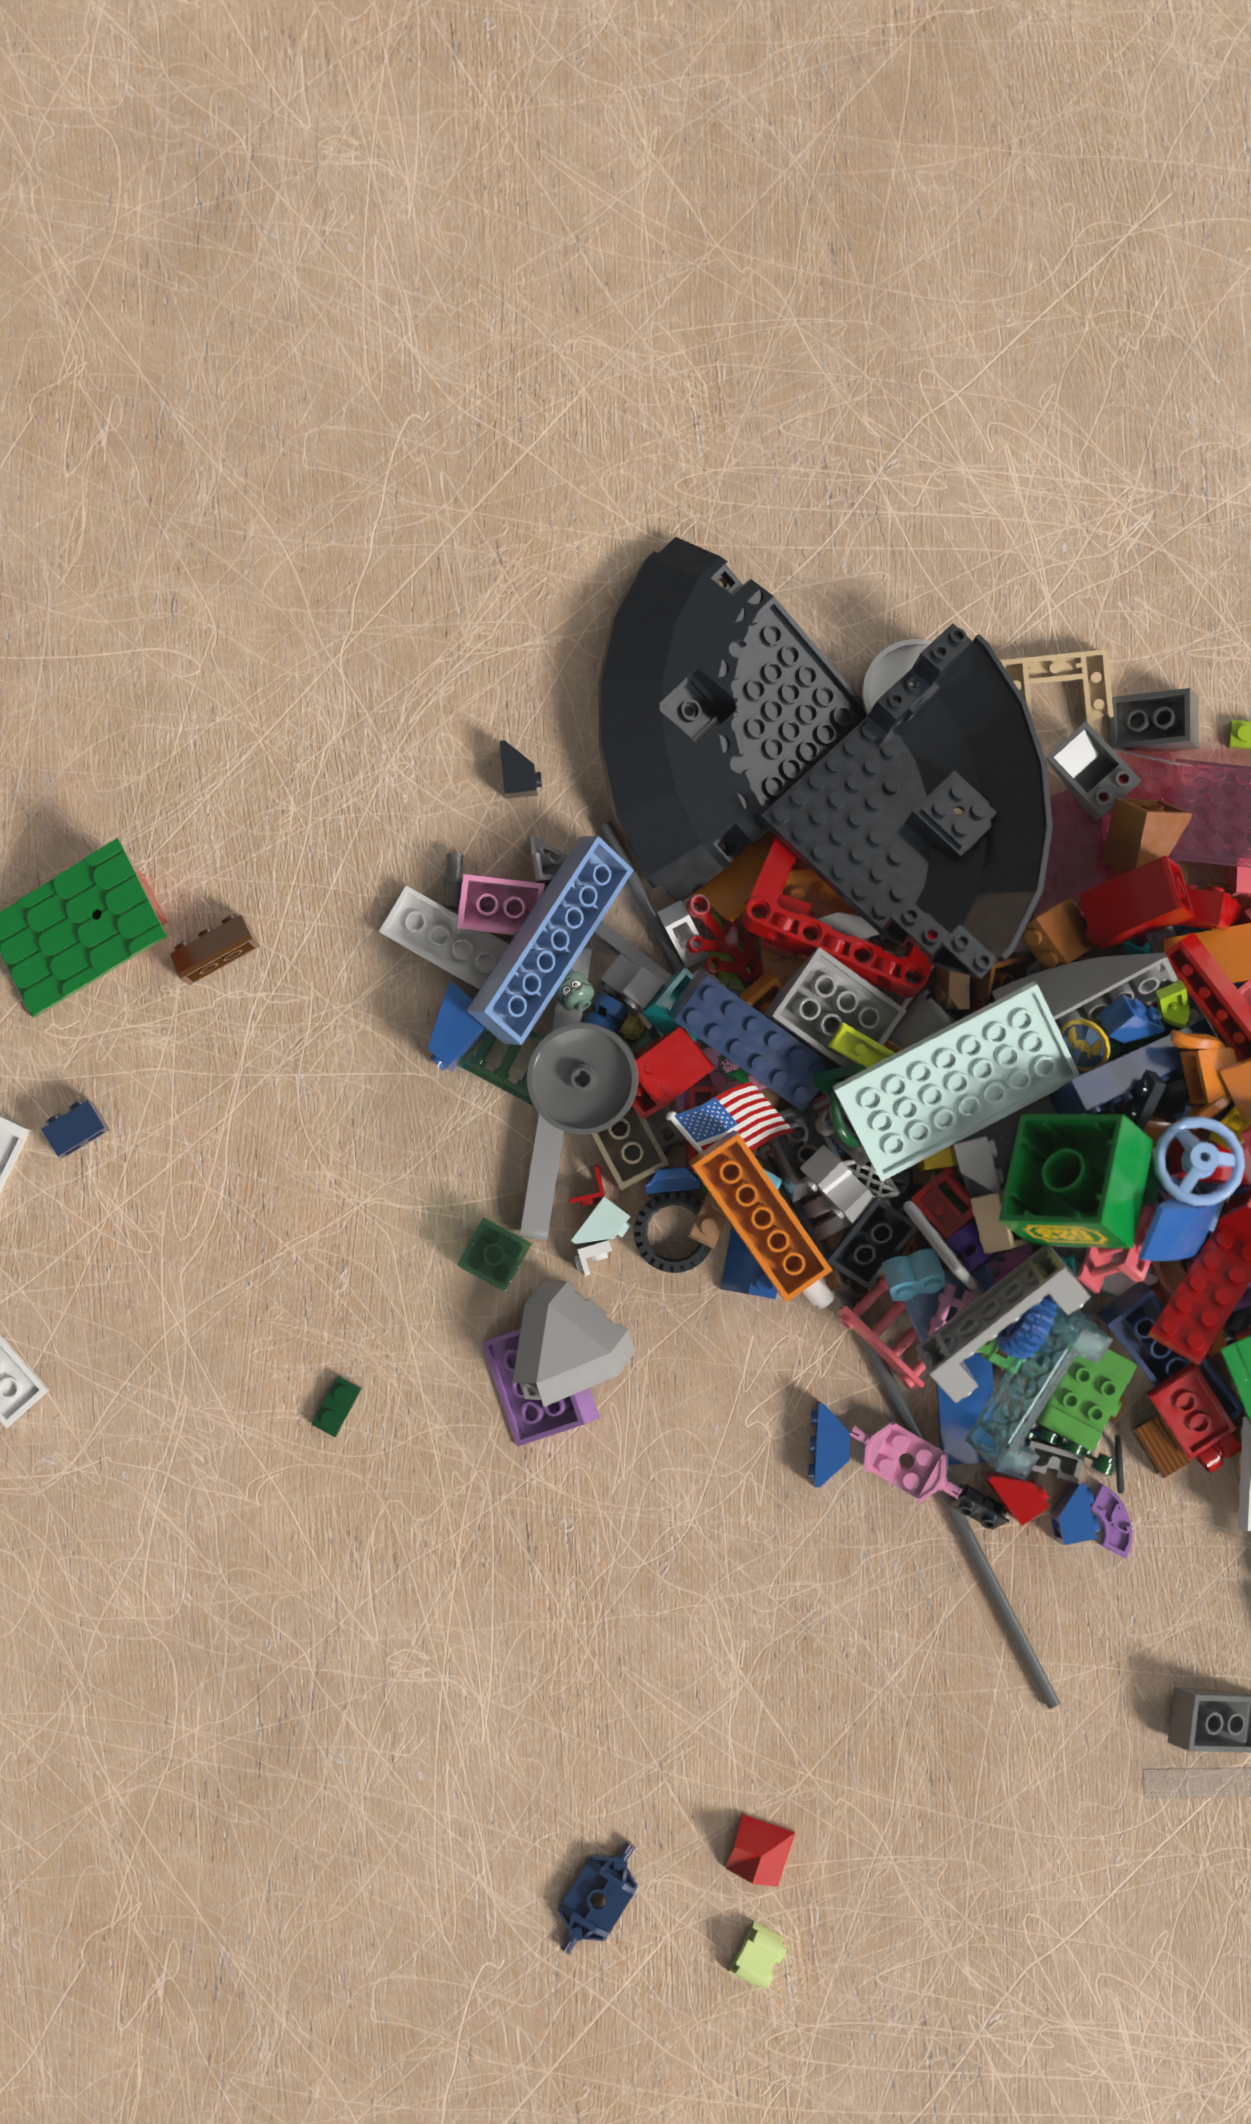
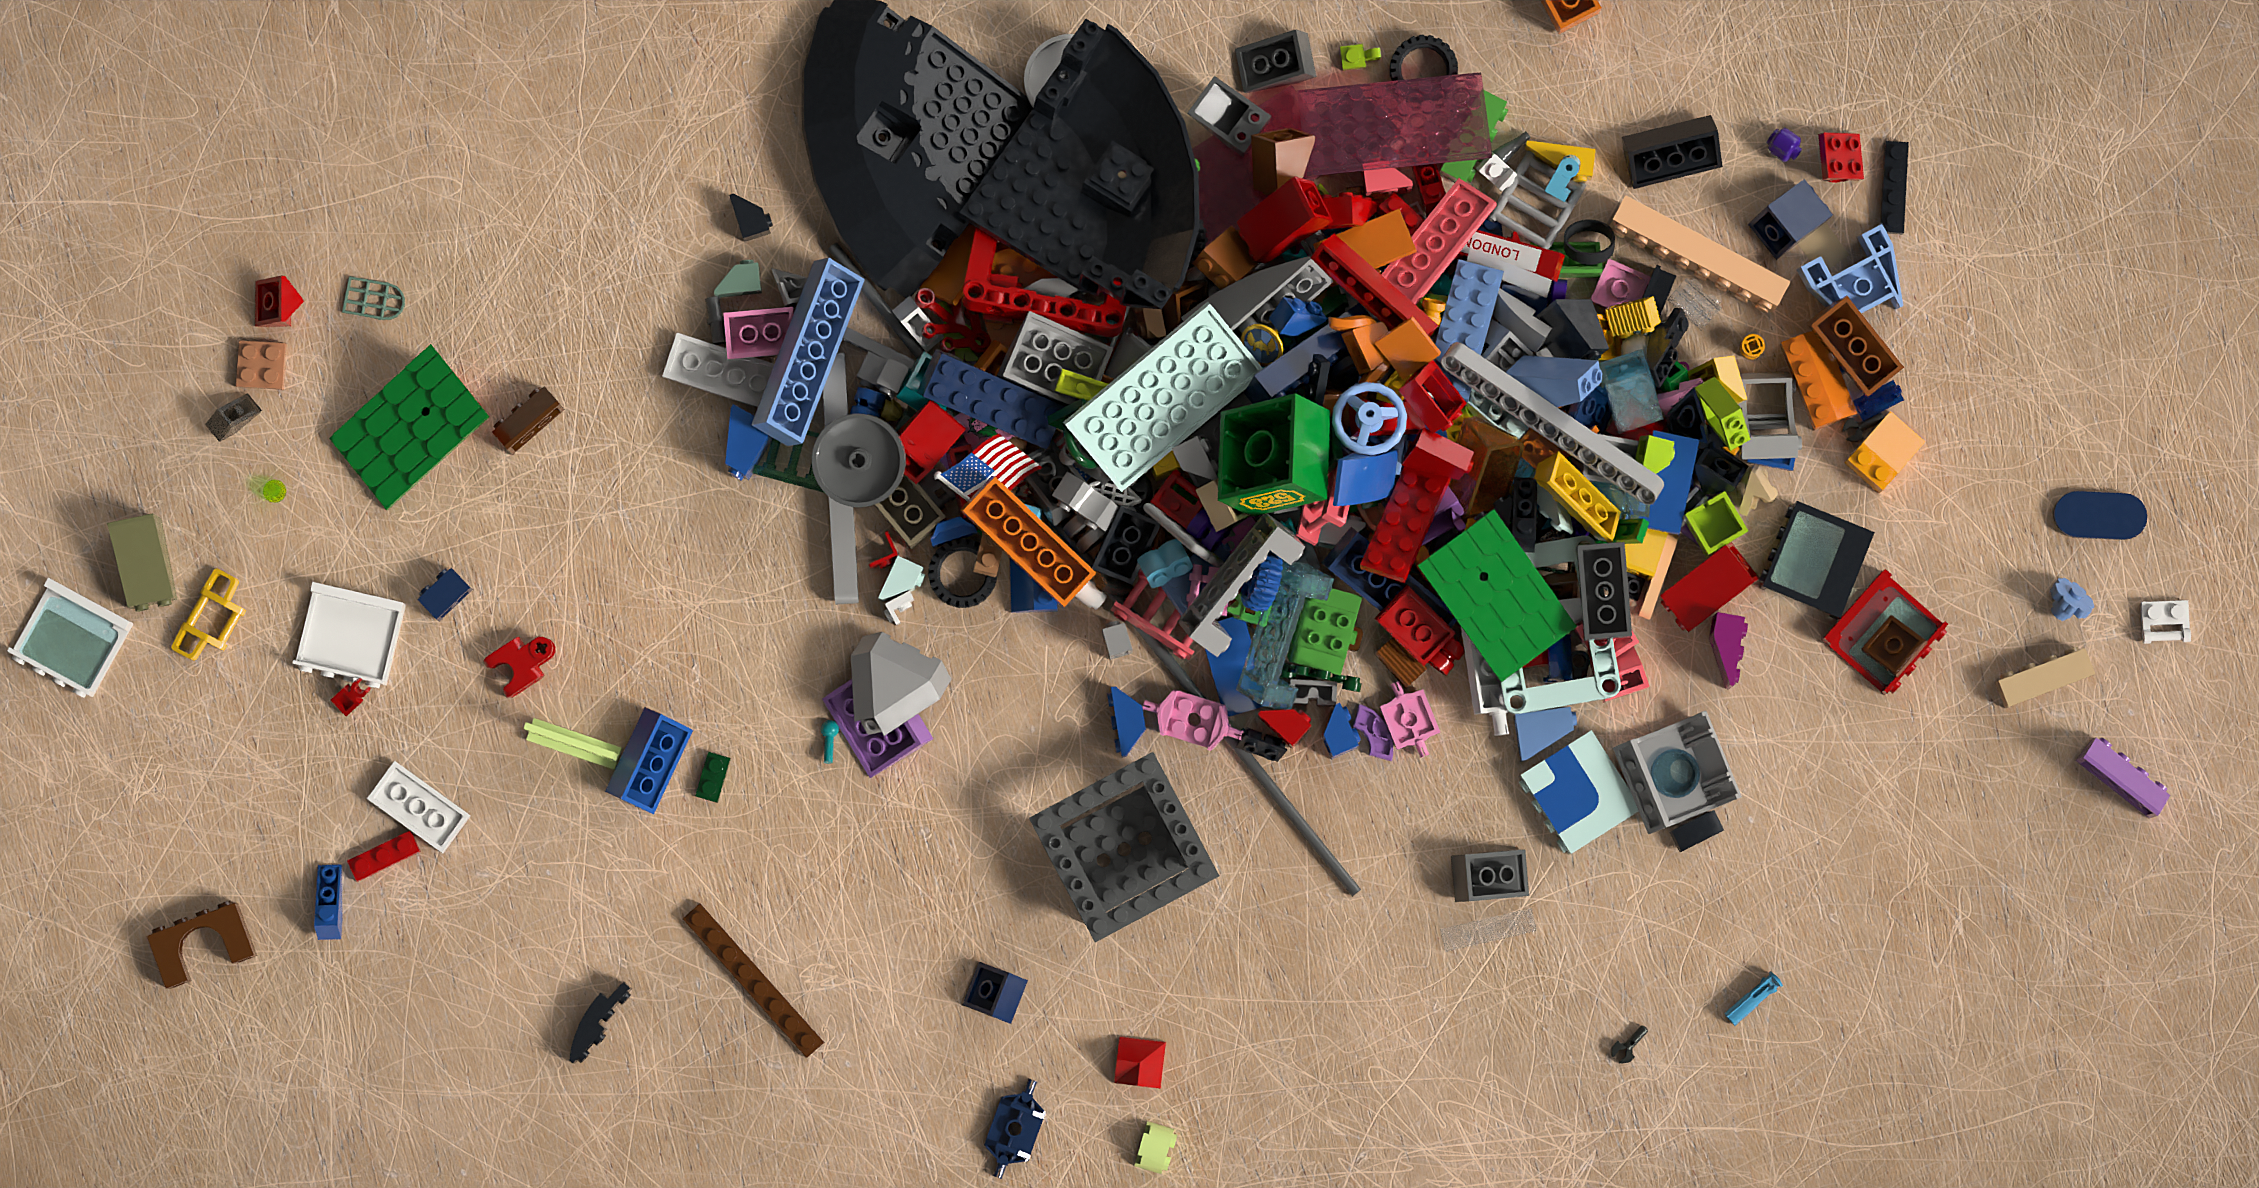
camera: 15 degrees left, 0 degrees up
(86, 771) = (366, 291): none -> sand green window
(132, 1669) = (590, 1028): none -> black slope
(148, 1226) = (524, 662): none -> red piece
(184, 1332) = (573, 743): none -> yellowish green fence
(266, 1372) = (649, 760): none -> blue slope
(332, 1654) = (753, 980): none -> reddish brown plate
(482, 1380) = (829, 730): none -> teal bar
(491, 841) = (741, 280): none -> sand green slope
(494, 1254) = (817, 623): clear green brick -> none
(575, 992) = (837, 391): sand green head -> none
(608, 1732) = (995, 992): none -> dark blue slope
(787, 1553) = (1148, 809): none -> dark grey plate
(837, 1349) = (1117, 640): none -> light grey brick
(1087, 666) = (1207, 27): tan wedge -> none
(1119, 1464) = (1366, 679): black tyre -> none
(1150, 757) = (1275, 94): flat silver sticker -> none
(1157, 1515) = (1409, 719): none -> bright pink plate
(1174, 1004) = (1330, 296): lime tile -> none

